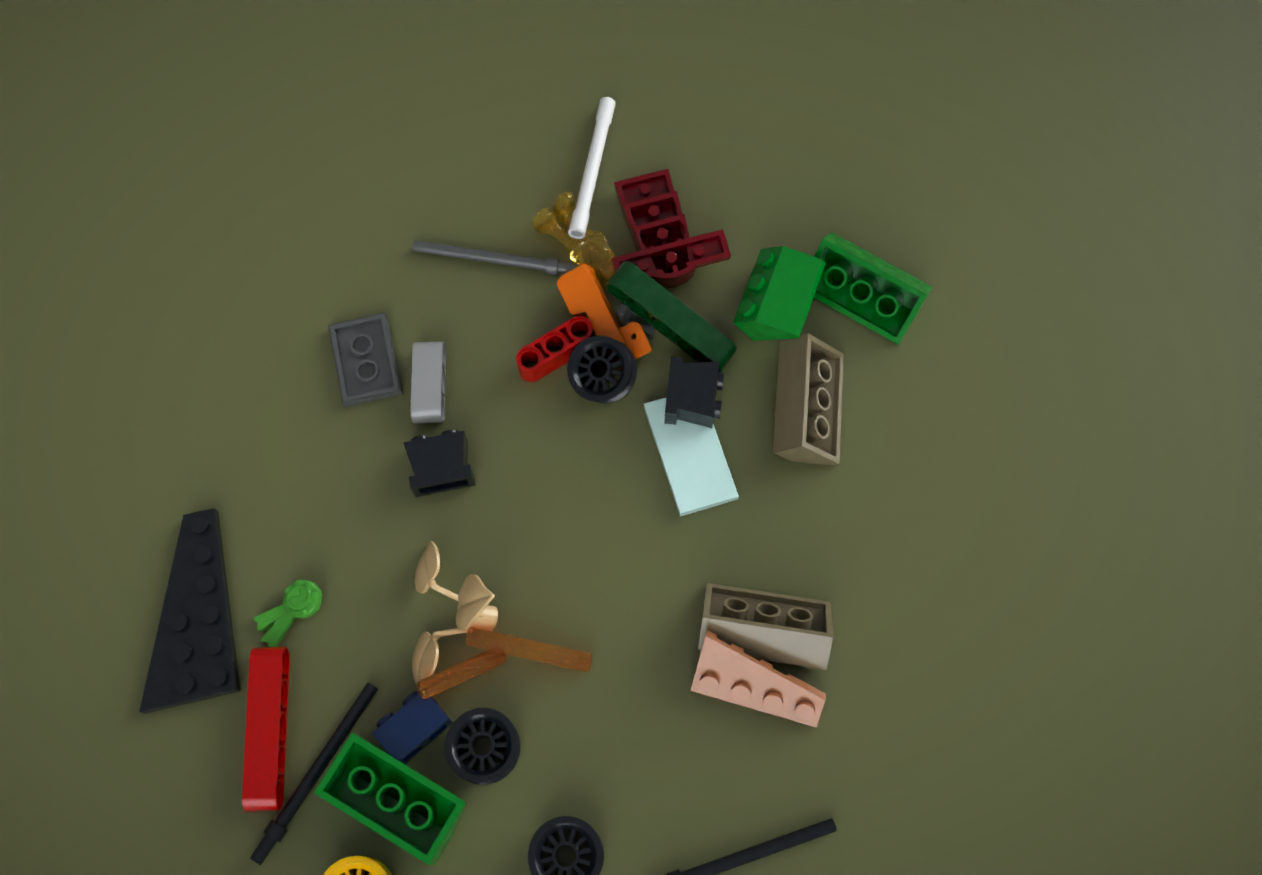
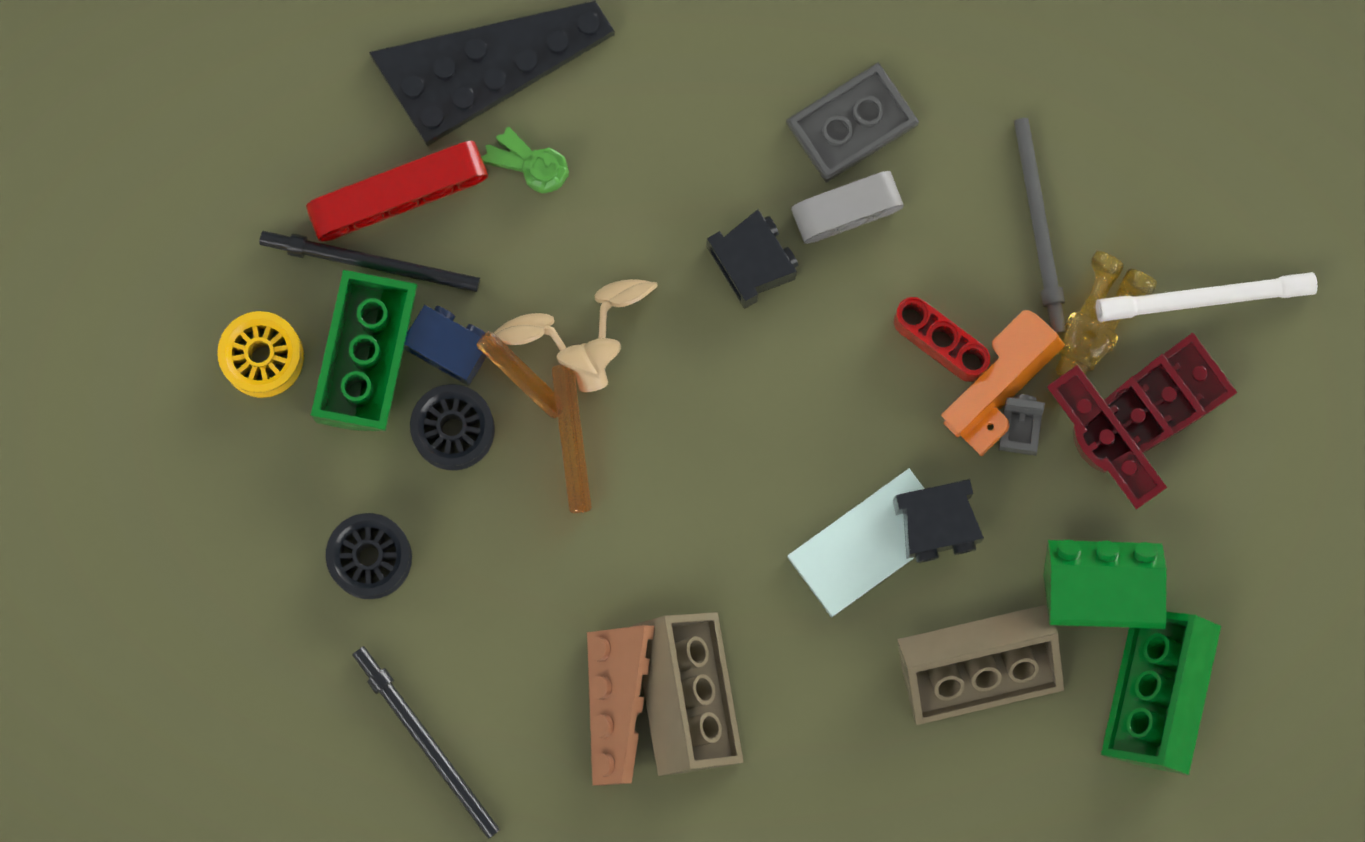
camera: 70 degrees right, 10 degrees up
(577, 363) = (903, 390): black wheel -> none
(669, 315) = (1025, 463): dark green beam -> none

